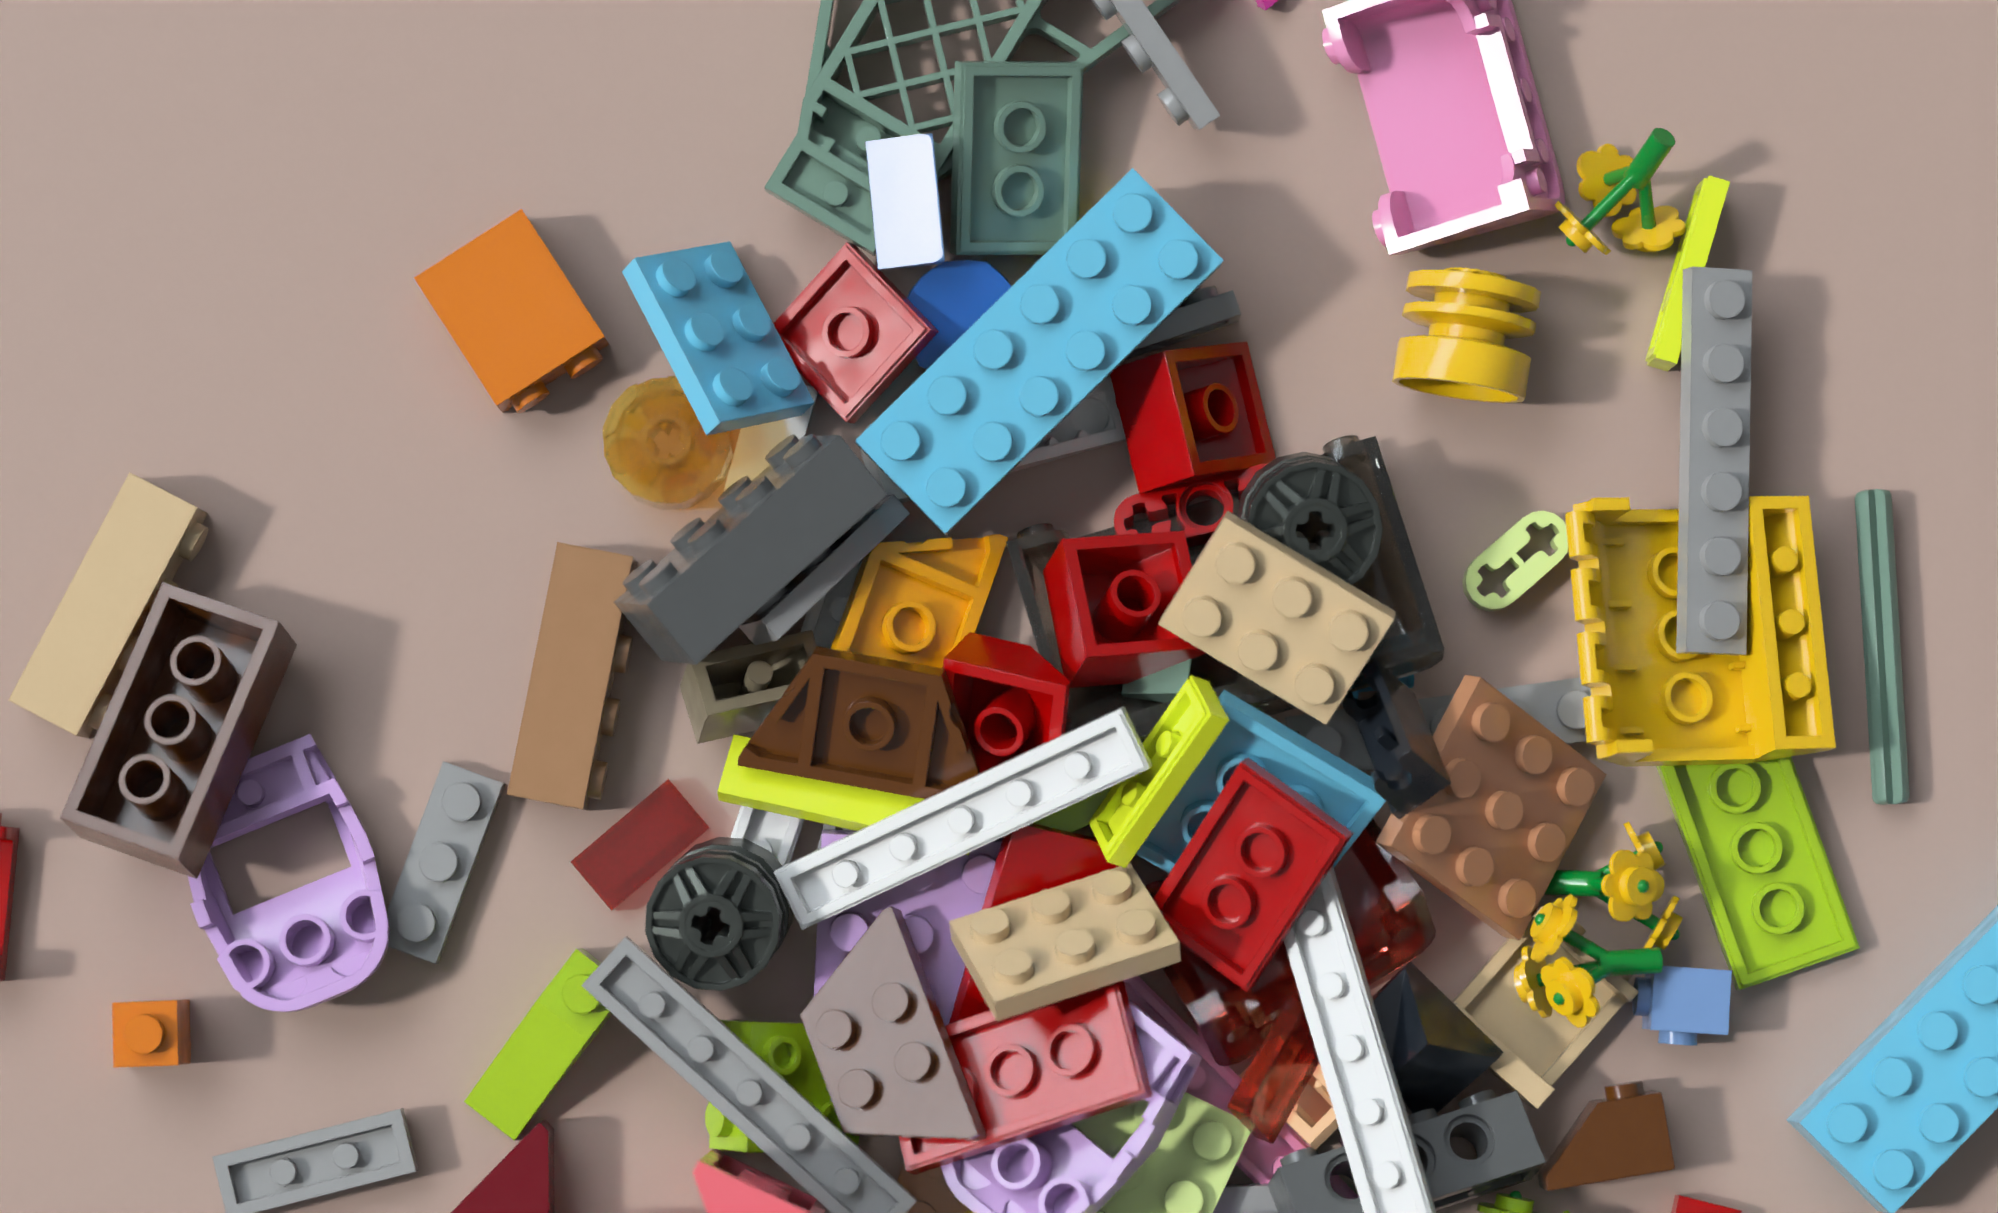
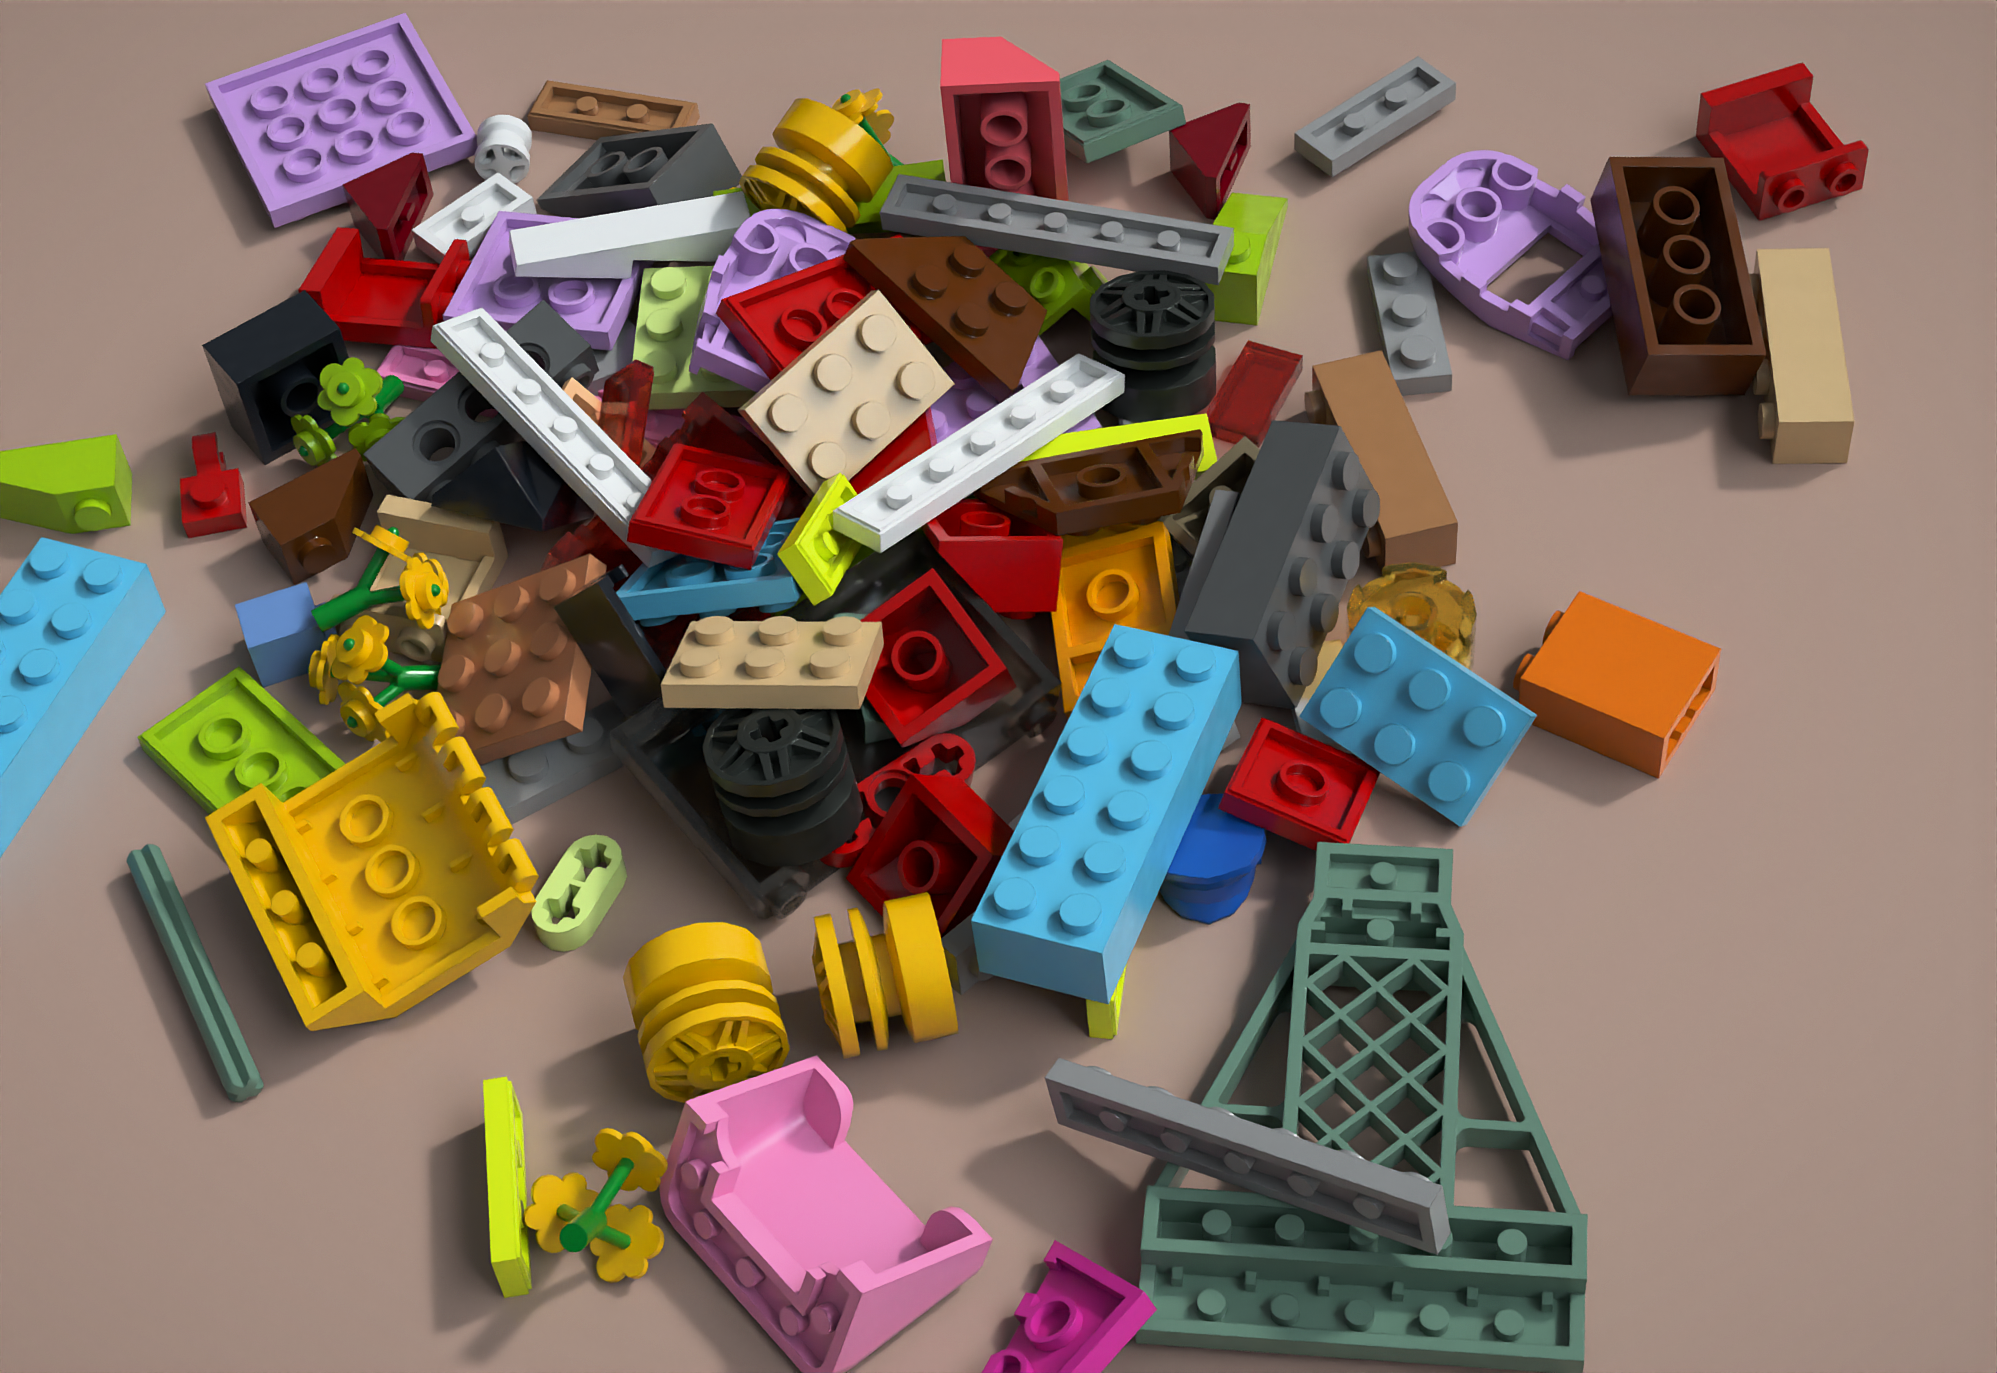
camera: 165 degrees right, 35 degrees down
(151, 1033) = (1556, 127): orange brick -> none
(905, 201) = (1309, 882): slope -> none
(1015, 155) = (1230, 984): sand green tile -> none
(1301, 299) = (885, 975): none -> yellow wheel
(1714, 461) = (414, 1015): light grey plate -> none

